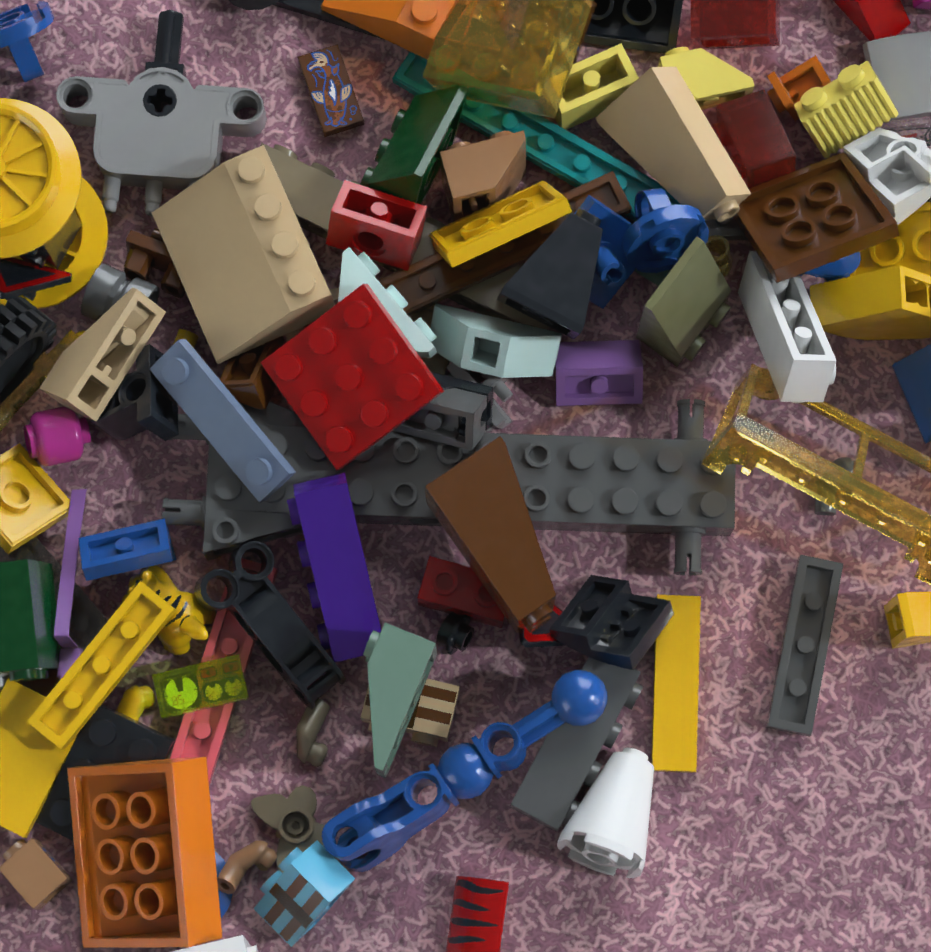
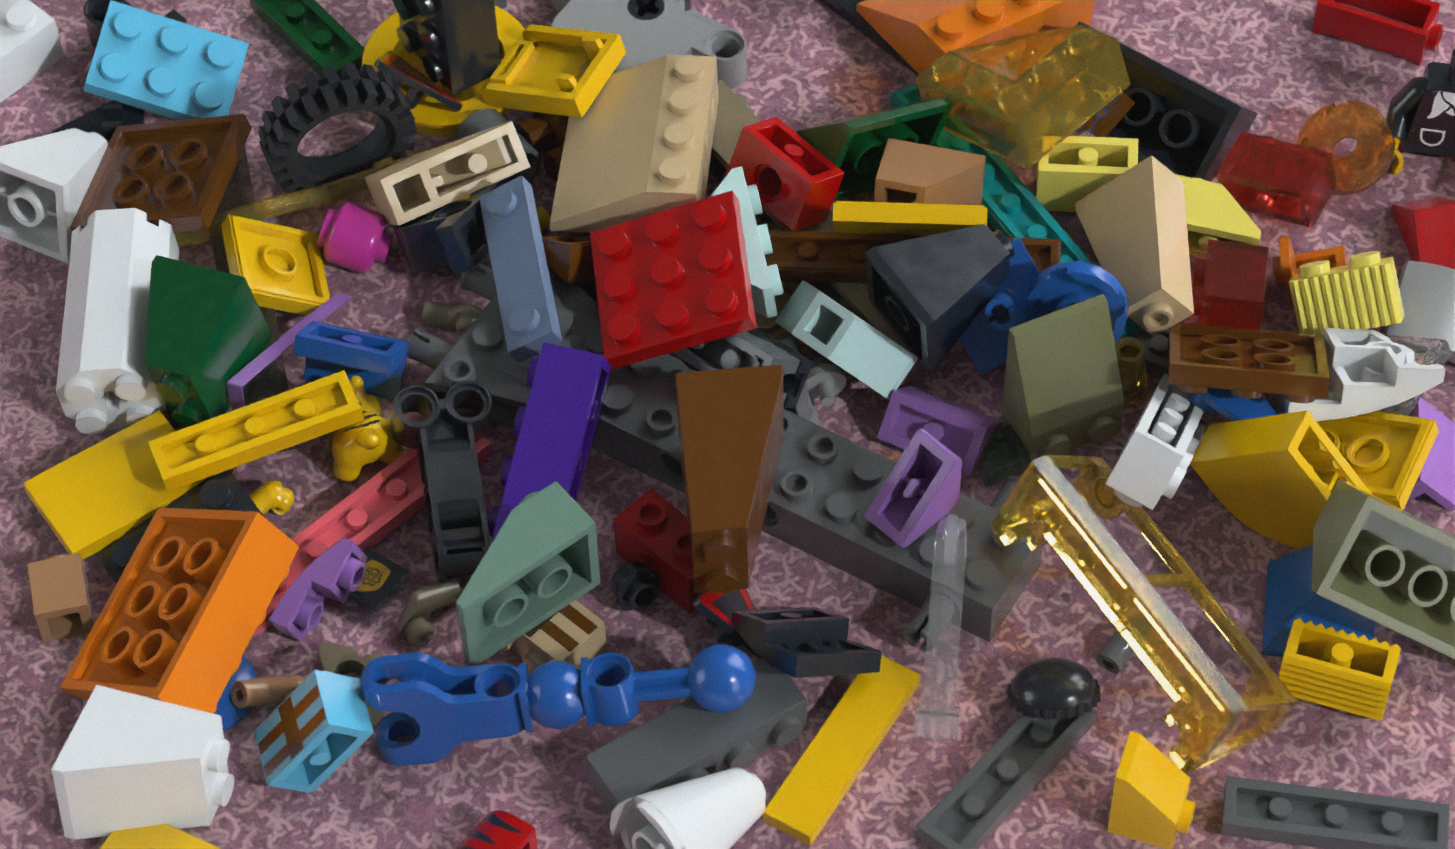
camera: 30 degrees right, 25 degrees down
(126, 210) = (556, 76): none -> yellow container
(178, 463) = (450, 316): none -> dark tan arm
(200, 686) = (341, 505): clear neon green tile -> none
(232, 759) = (330, 576): none -> medium lavender slope
(255, 729) = (381, 583): none -> tile
(331, 90) = (822, 81): tile -> none
(636, 471) = (917, 490): none -> medium lavender slope
(658, 372) = (1003, 457): none -> tile
(731, 624) = (937, 714): none -> clear piece
(804, 562) = (1053, 689): none -> black hat

